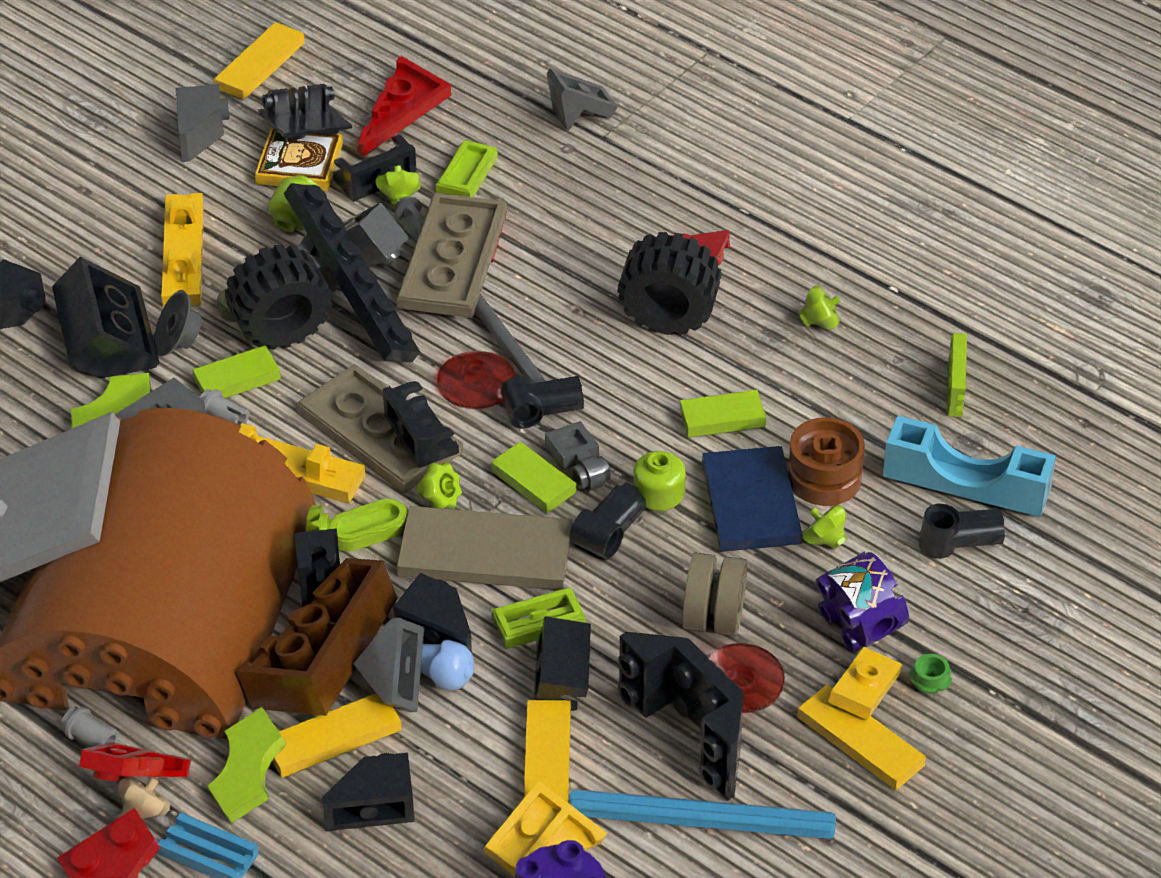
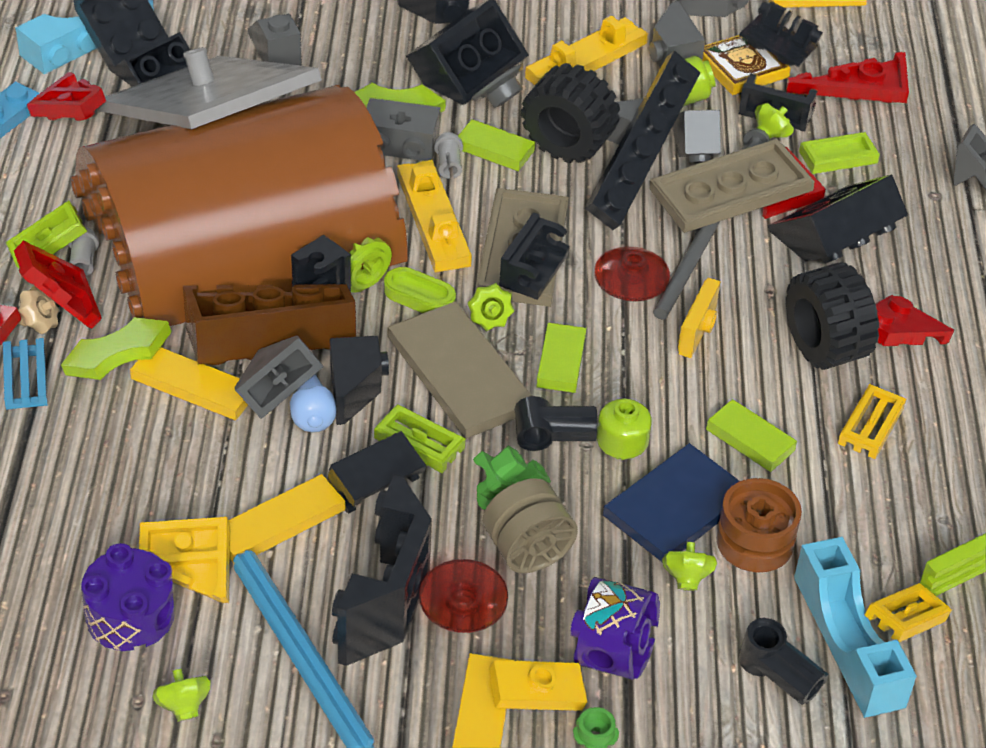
camera: 50 degrees right, 0 degrees up
(67, 748) = (51, 231): none -> lime tile
(234, 180) = (675, 33): none -> dark grey slope
(371, 794) = (146, 432): black slope -> none
(530, 401) = (635, 310): black piece -> none
(549, 216) = (842, 220): none -> black slope
(577, 449) = (606, 368): dark grey plate -> none
(578, 362) = (700, 318): none -> yellow plate
(654, 584) = (504, 470): none -> bright green hips
(764, 337) = (862, 440): none -> yellow tile
(820, 309) = (933, 433): lime piece -> none
(977, 439) = (914, 618): none -> yellow tile

